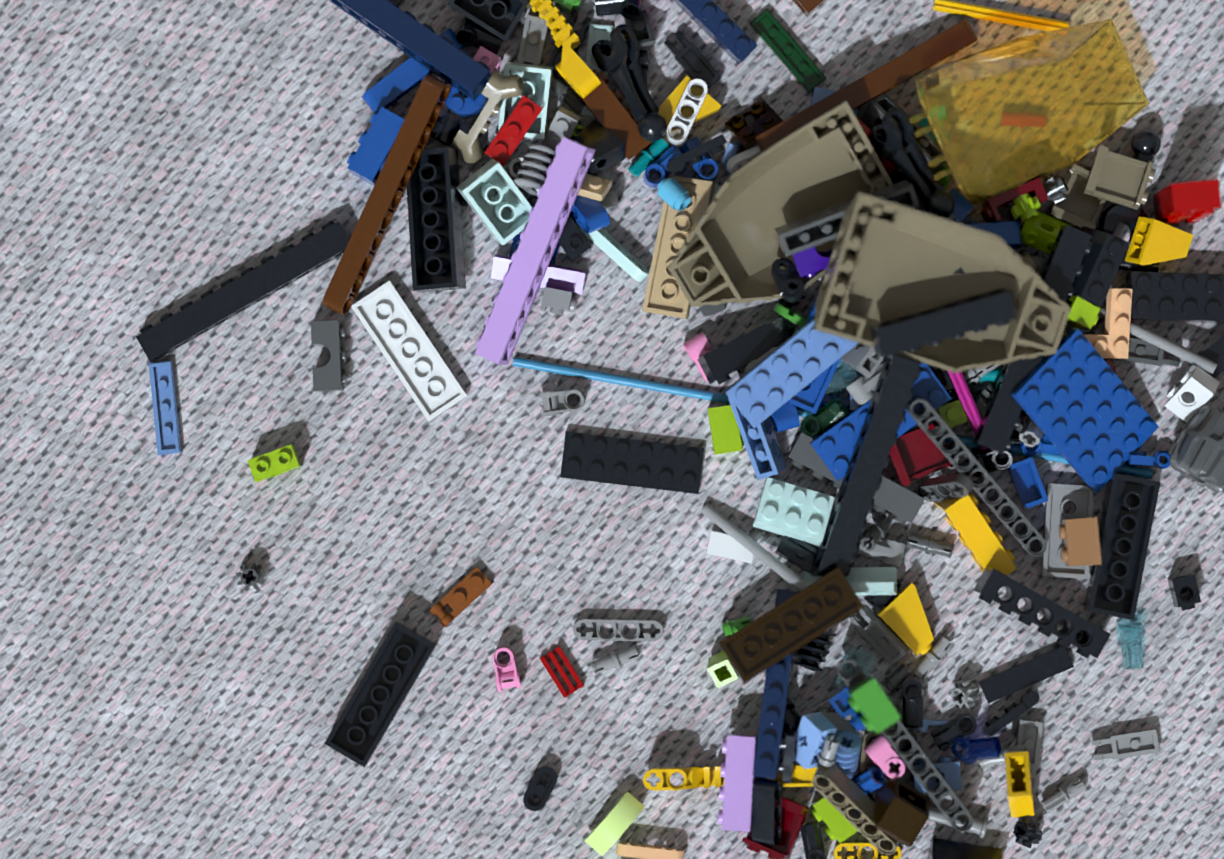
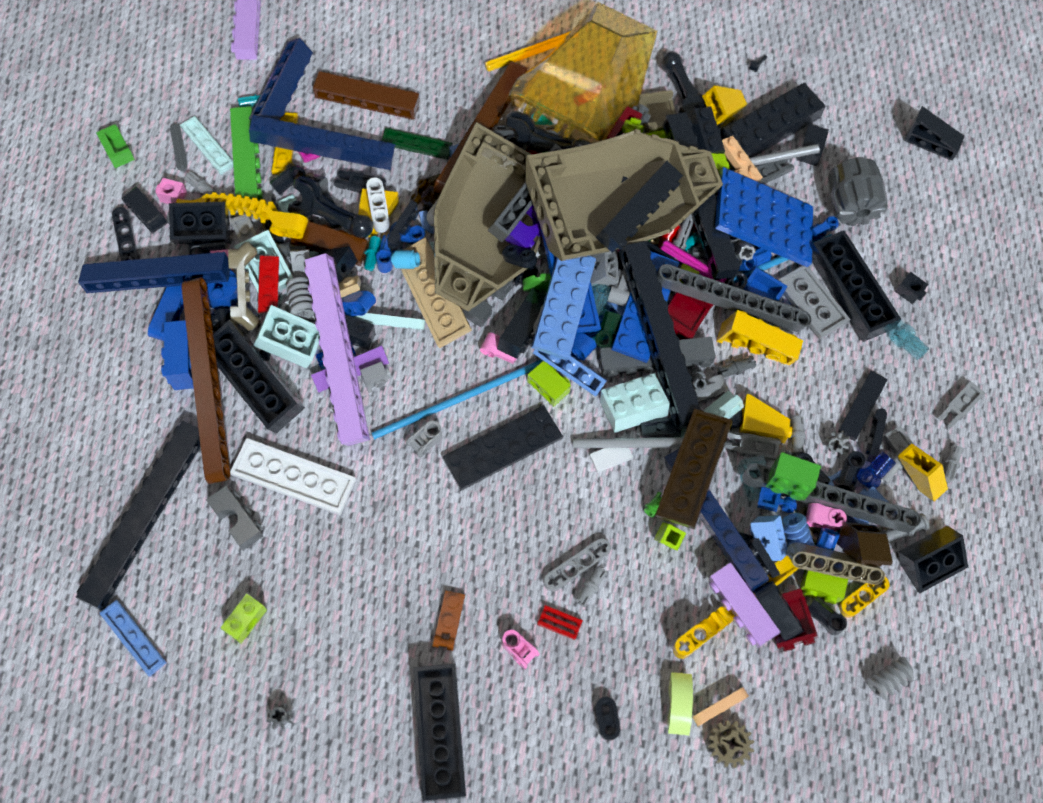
camera: 35 degrees left, 20 degrees down
(814, 652) = (719, 486): black piece -> none
(829, 750) = (788, 536): light grey pin -> none
(945, 487) = (720, 311): dark grey beam -> none
(1027, 832) = (959, 503): black gear -> none
(1080, 541) = (829, 294): medium nougat slope -> none
(1093, 636) = (841, 355): black brick -> none
(1119, 178) = (674, 82): dark tan panel -> none
(1187, 201) = (724, 62): red brick -> none
(1202, 389) = (821, 181): white brick -> none

